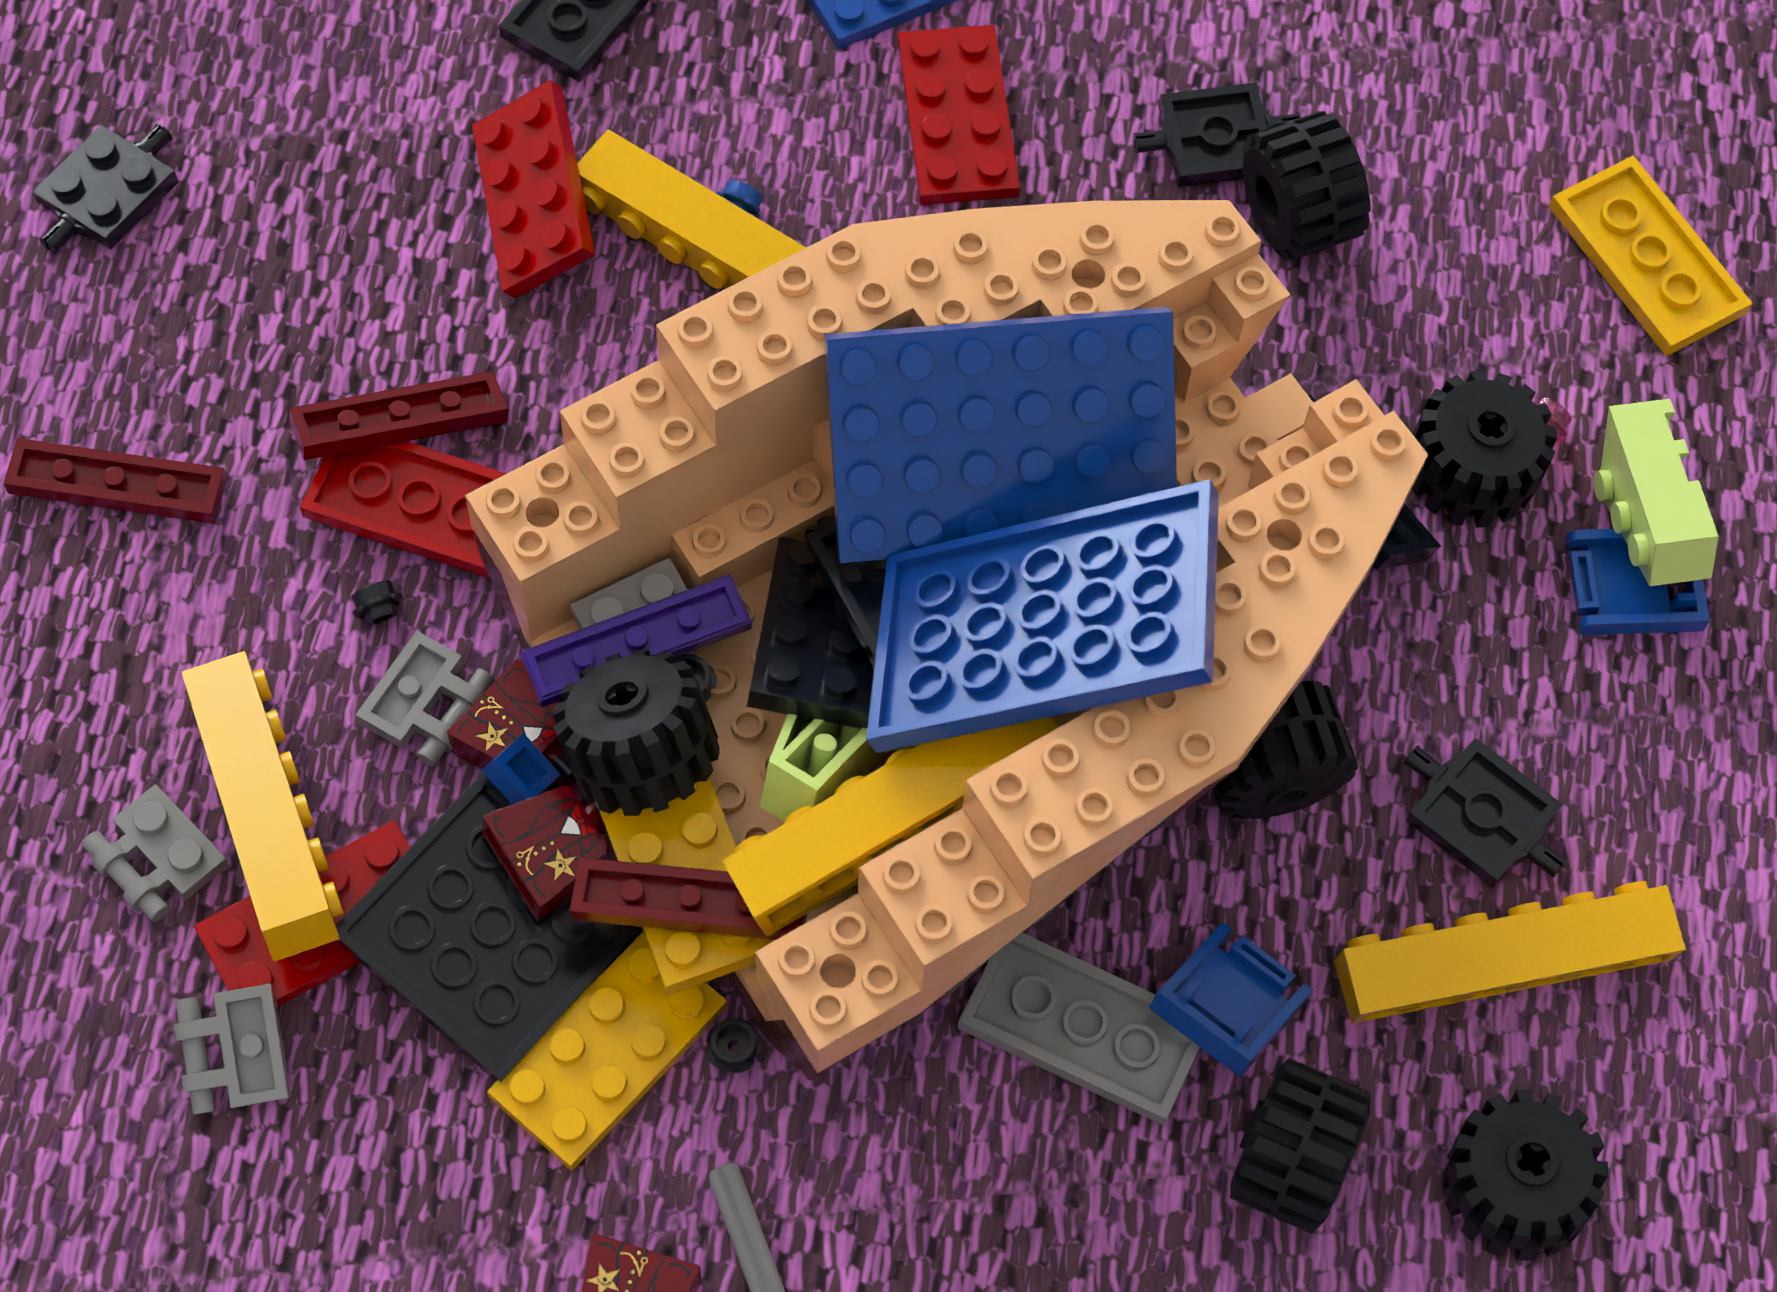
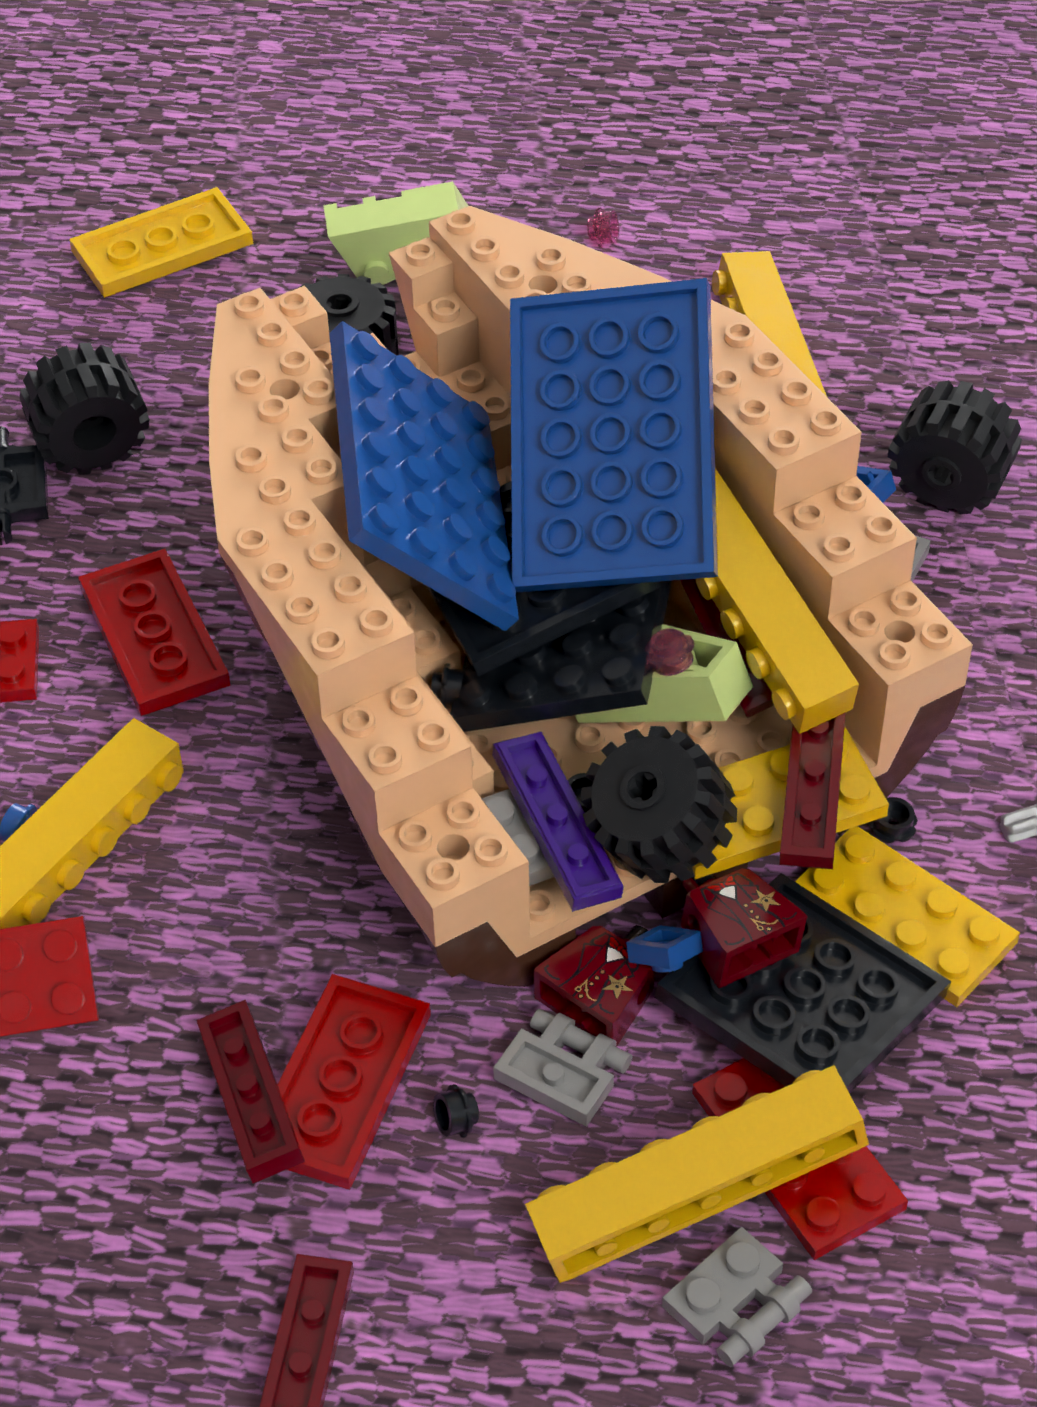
camera: 85 degrees left, 15 degrees down
(249, 1045) = (945, 1182): light grey plate -> none
(808, 724) = (670, 652): none -> clear pink plate
(1515, 1205) = (953, 338): black wheel -> none
(1740, 757) = (603, 227): none -> clear pink plate

